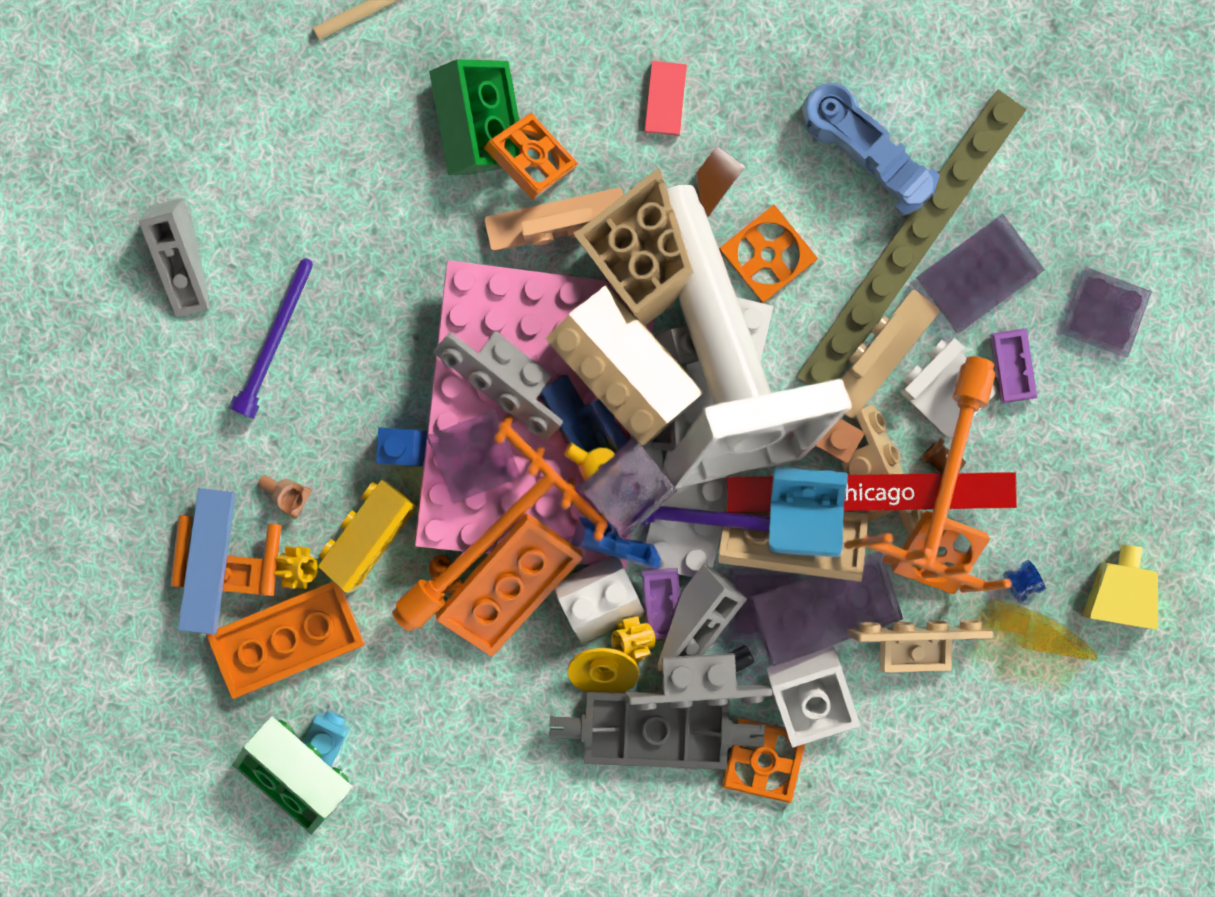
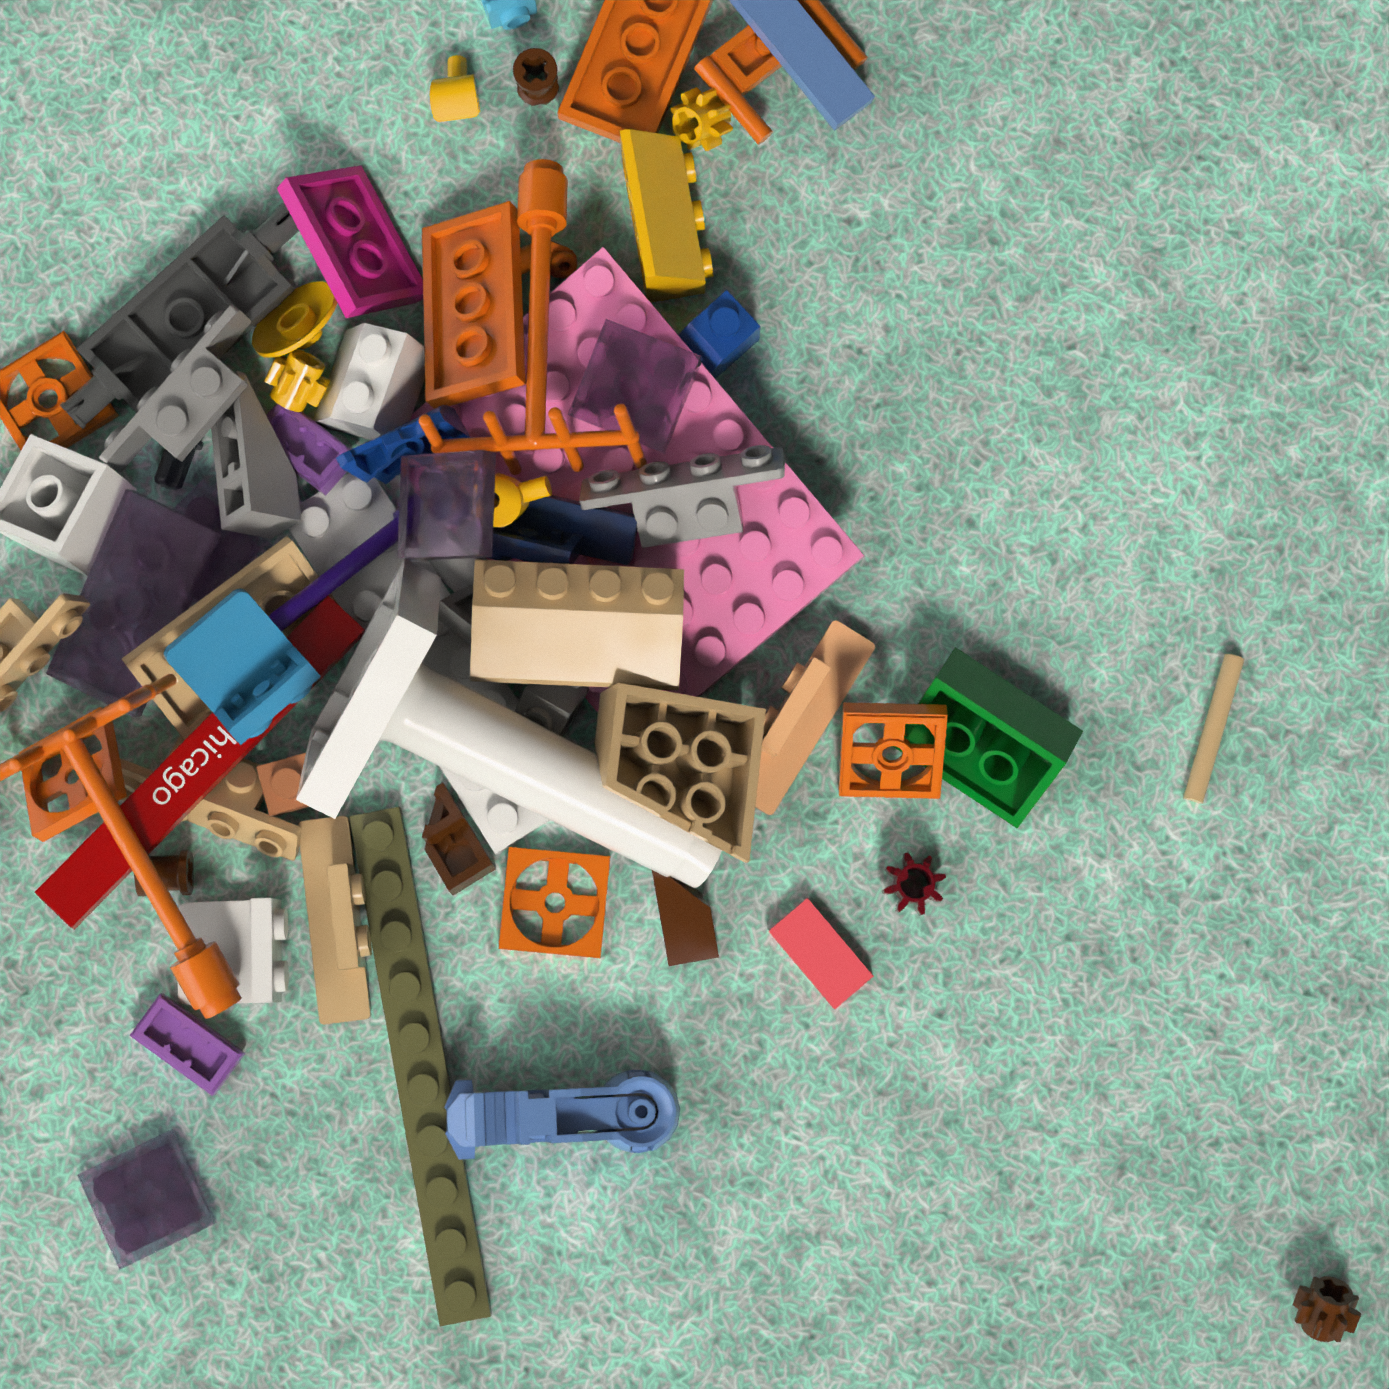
camera: 135 degrees right, 5 degrees down
(176, 256) = (1136, 297): light grey slope -> none
(246, 400) = (918, 229): dark purple piece -> none
(286, 494) = (785, 181): nougat piece -> none
(349, 683) = (533, 62): none -> reddish brown bush
(405, 707) = (455, 95): none -> yellow piece
(534, 682) = (352, 240): none -> dark pink plate
(584, 74) = (902, 874): none -> dark red gear
(788, 331) = (454, 845): none -> reddish brown slope
(980, 273) = (316, 1104): clear purple plate -> none

